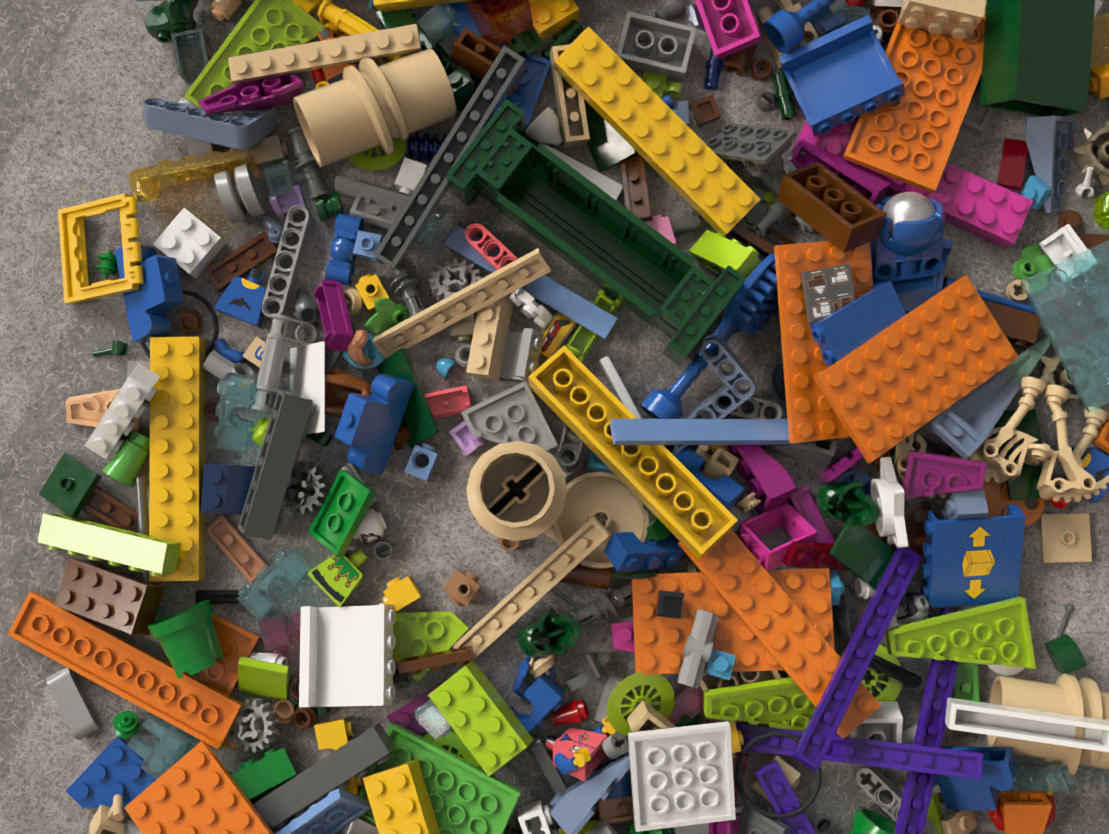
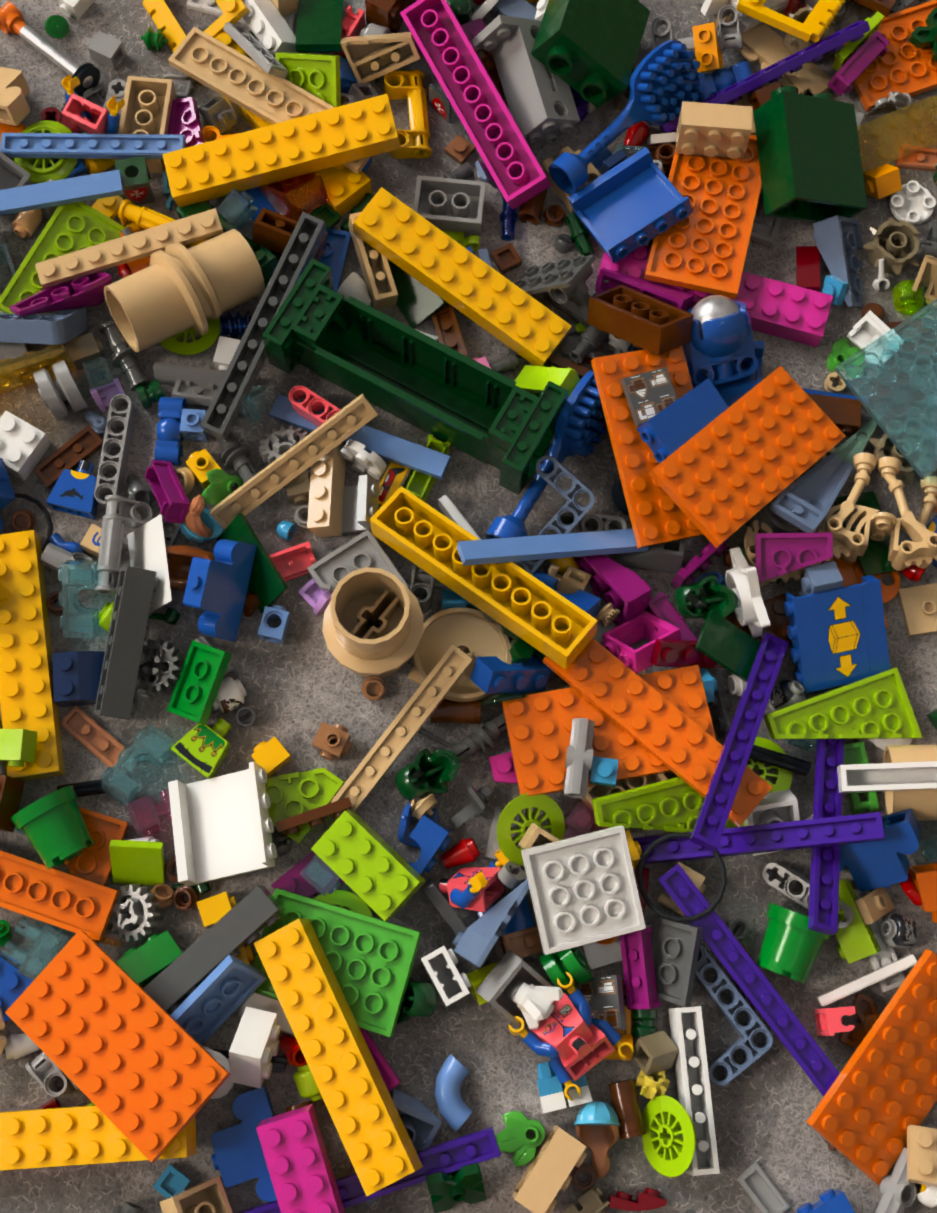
camera: 10 degrees left, 10 degrees down
(669, 604) = (543, 718): black panel -> none

